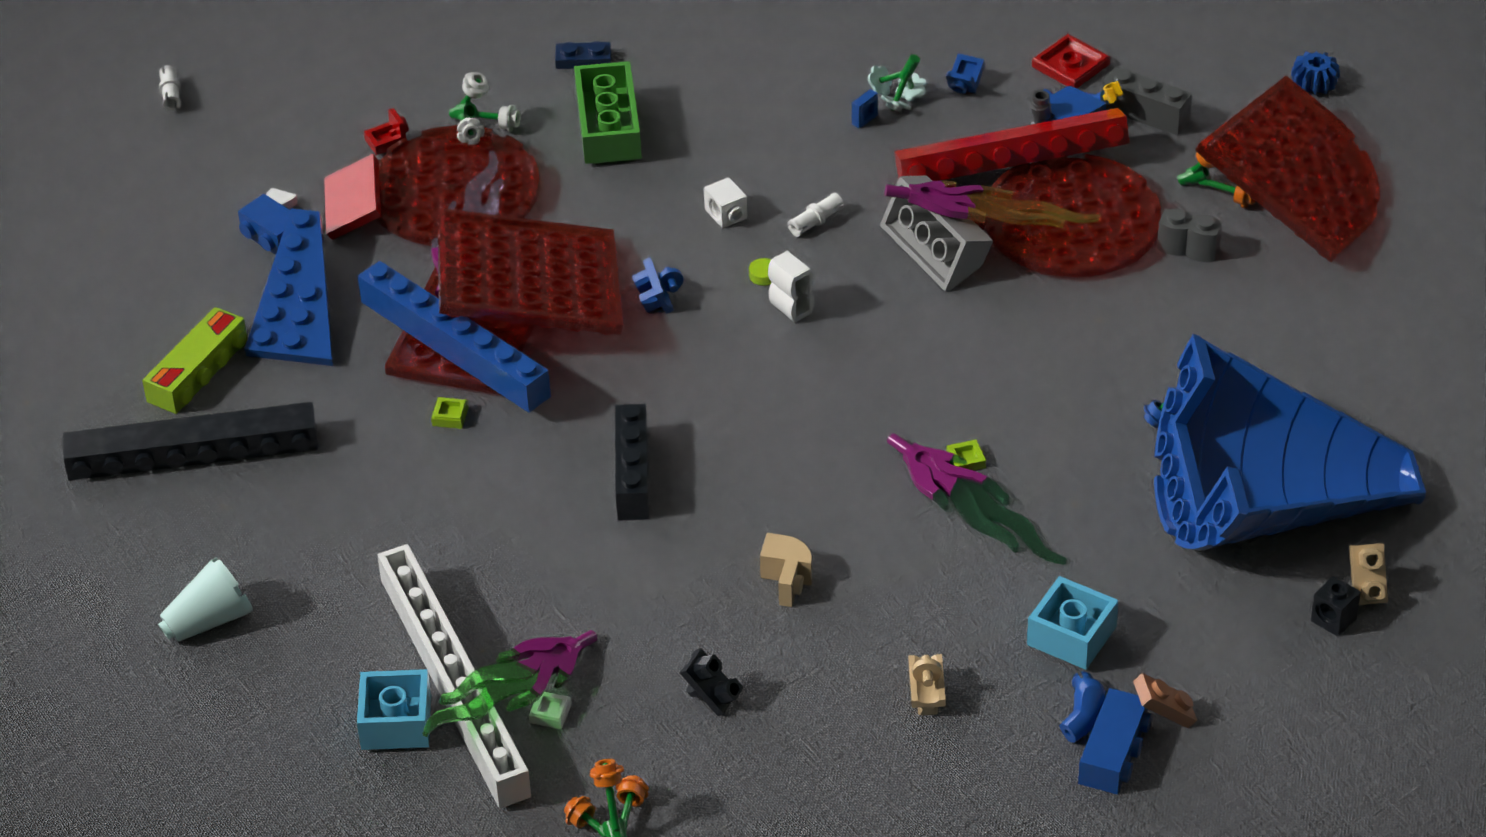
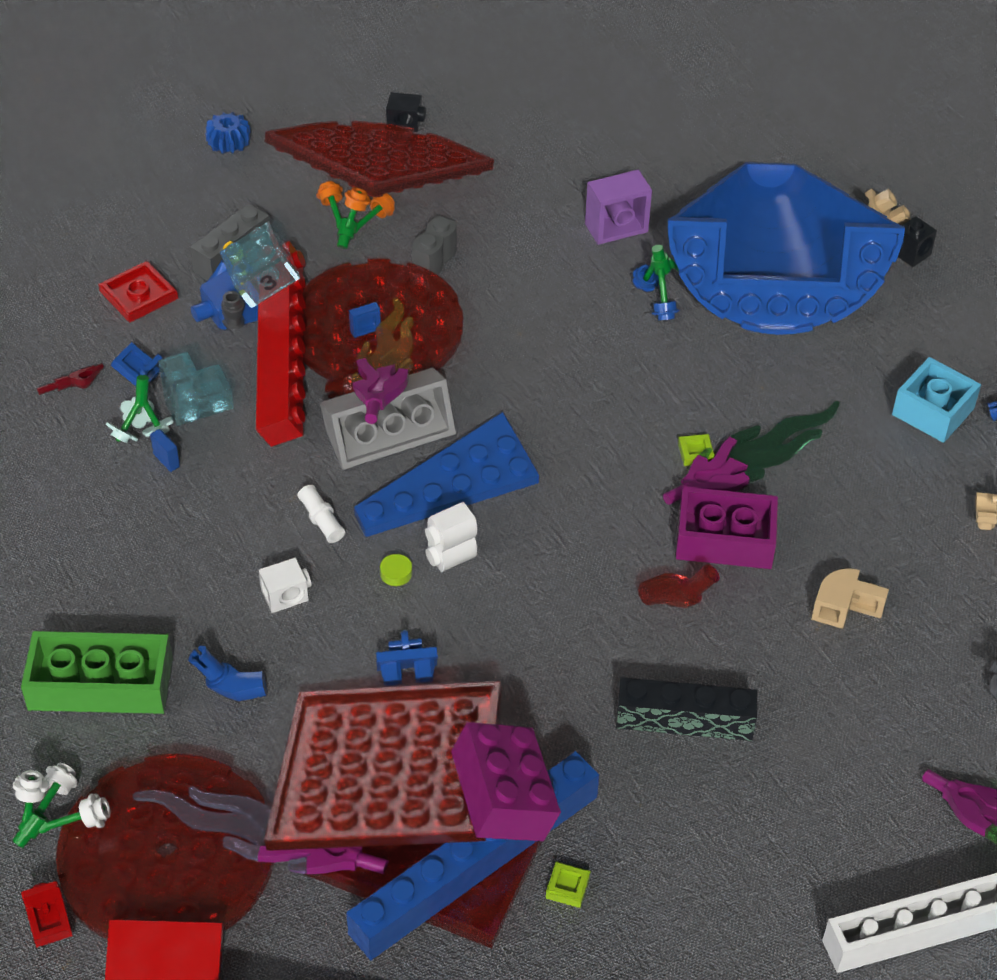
camera: 85 degrees left, 5 degrees up
(486, 307) = (505, 782): none -> magenta brick
(622, 187) = (226, 679): none -> blue arm
(775, 446) = (678, 589): none -> clear red arm
(850, 471) = (727, 527): none -> magenta brick
(891, 302) = (468, 471): none -> blue wing
(933, 106) = (191, 392): none -> clear light blue brick
(945, 48) = (81, 378): none -> dark red hand
(1053, 191) = (364, 319): none -> blue tile
(1082, 99) = (259, 264): none -> clear light blue brick
(1291, 350) = (618, 206): none -> medium lavender brick
(1402, 188) = (405, 110): none -> black brick

